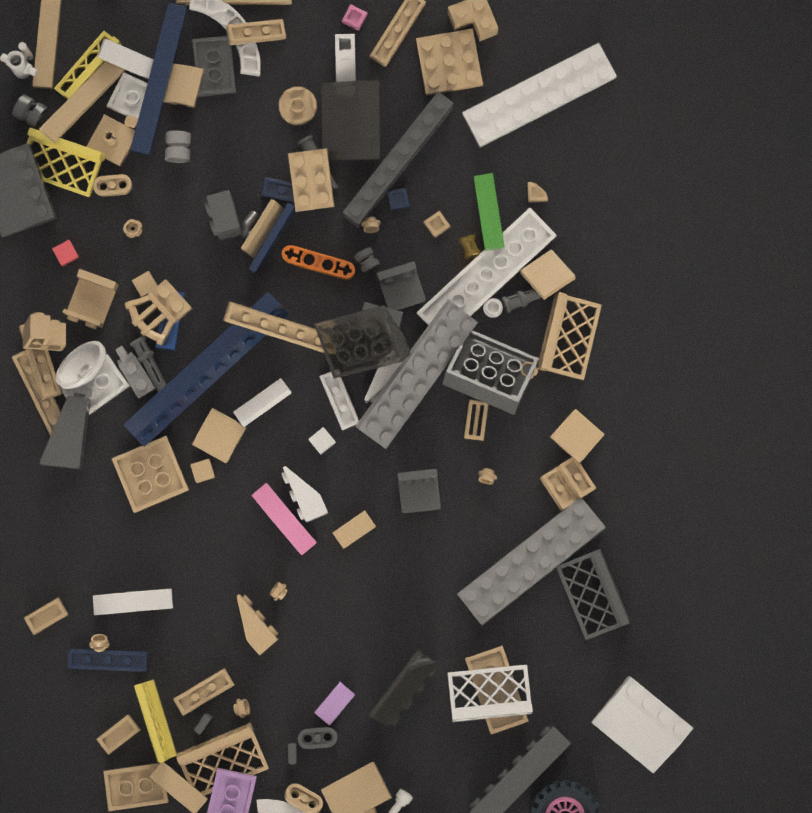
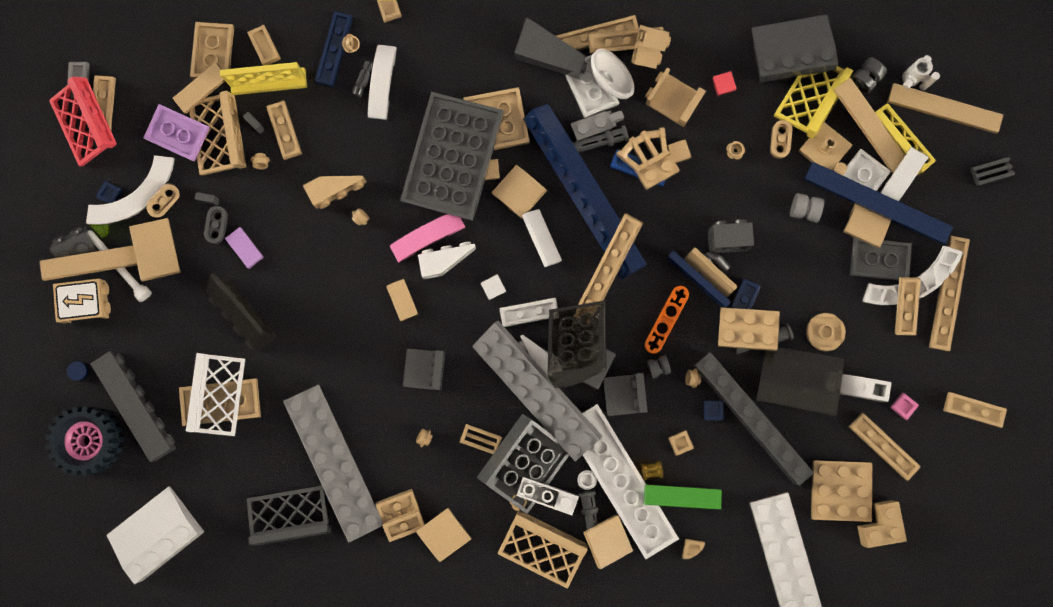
camera: 105 degrees right, 0 degrees up
(133, 621) = (363, 79): none -> dark grey axle
(197, 510) = (452, 156): none -> dark grey plate
(516, 341) = (547, 495): none -> white slope

